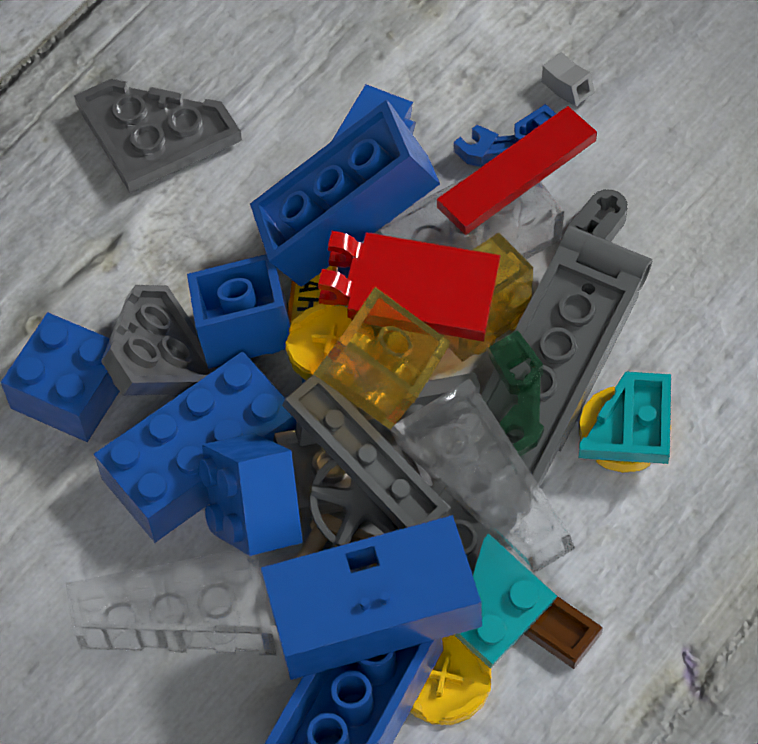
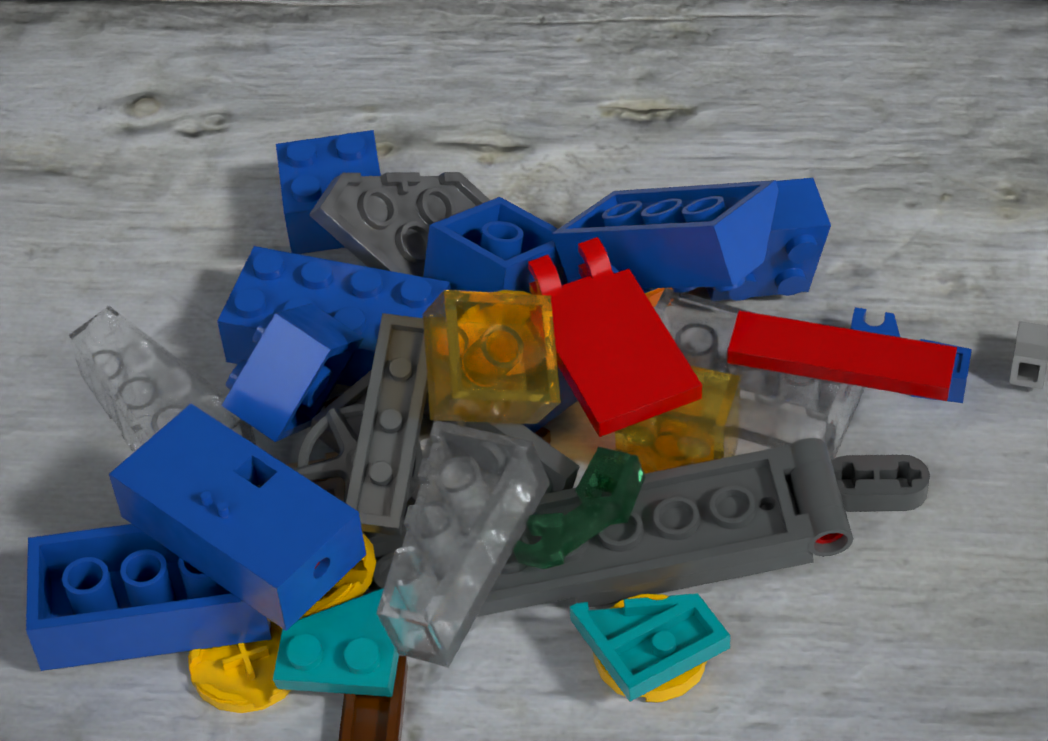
camera: 55 degrees right, 10 degrees down
(154, 129) = (652, 96): flat silver plate -> none

